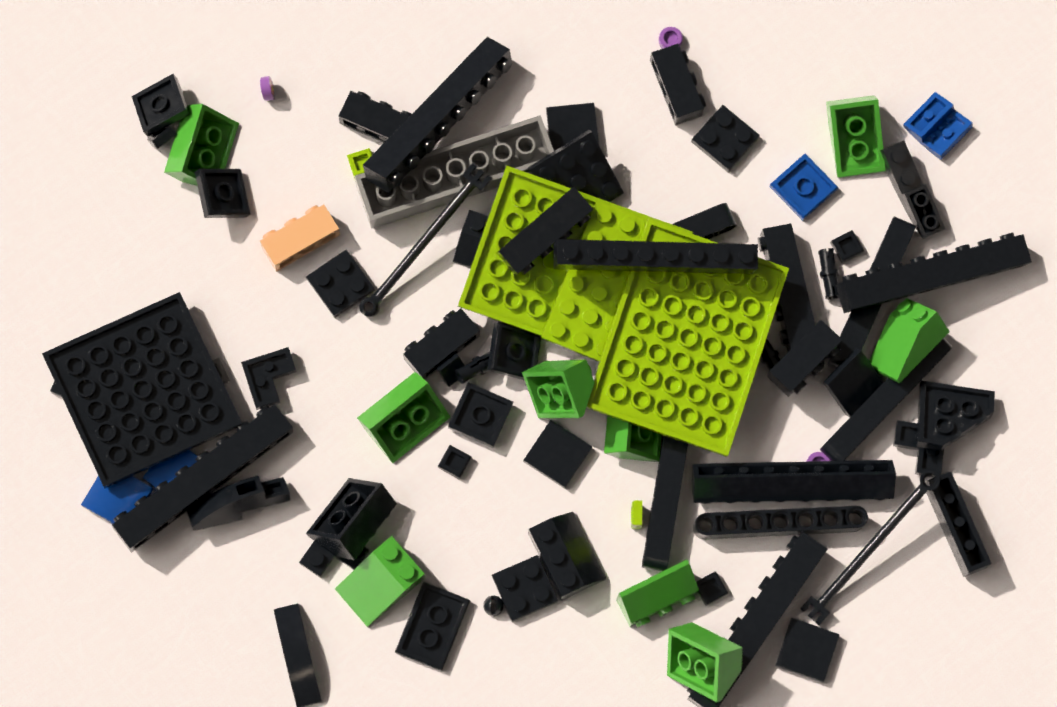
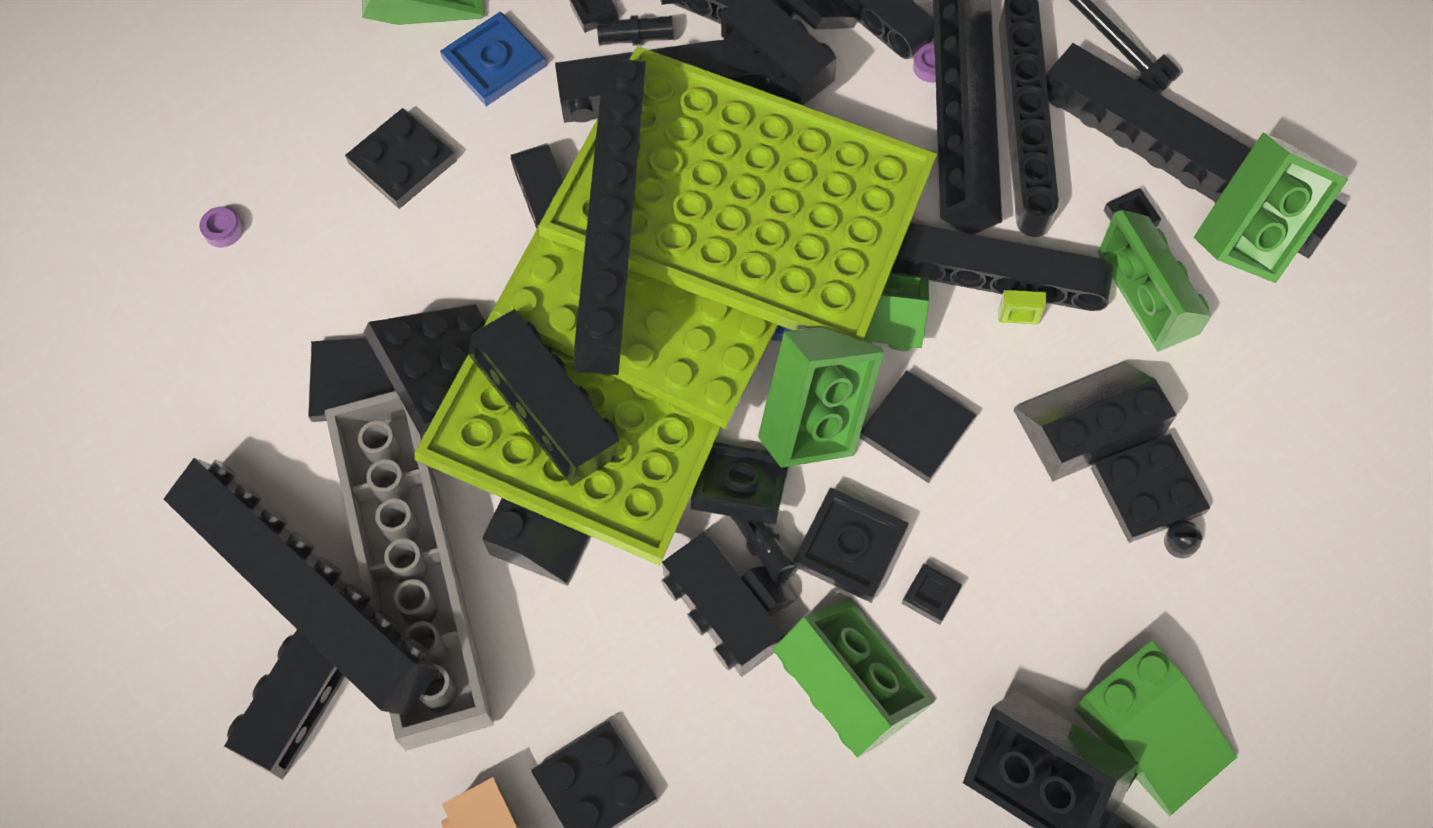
camera: 80 degrees left, 10 degrees down
(357, 160) = (367, 738): lime tile -> none
(432, 626) = (1229, 642): black tile -> none
(473, 181) = (435, 522): black hinge -> none
(677, 84) = (299, 216): black brick -> none
(807, 650) = (1221, 90): black tile -> none

